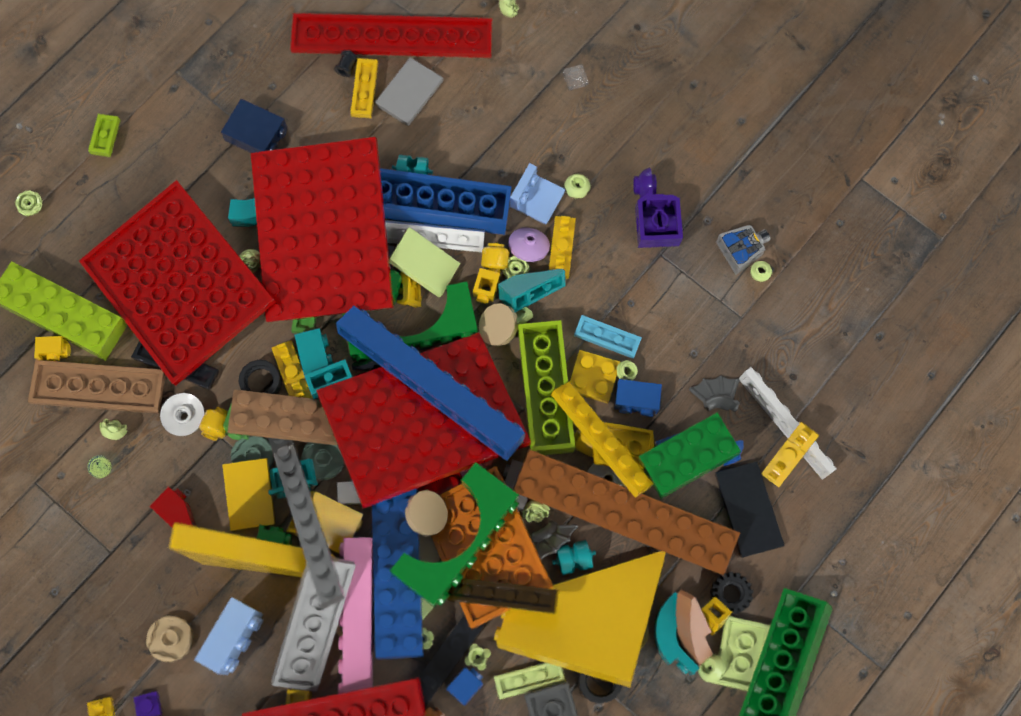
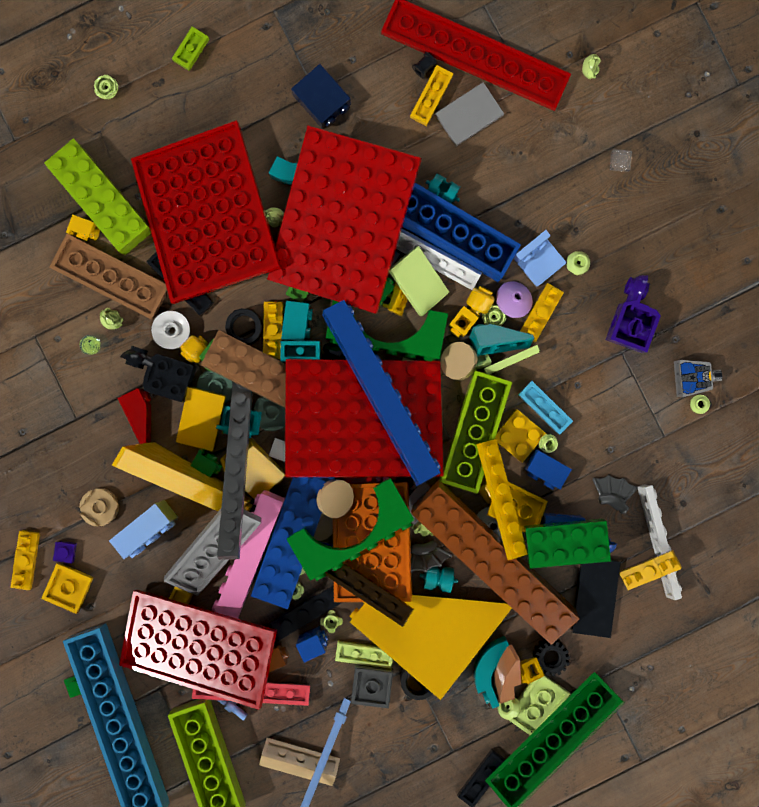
camera: 25 degrees right, 15 degrees up
(192, 462) = (163, 374): none -> black brick
(554, 301) = (511, 360): none -> yellowish green tile

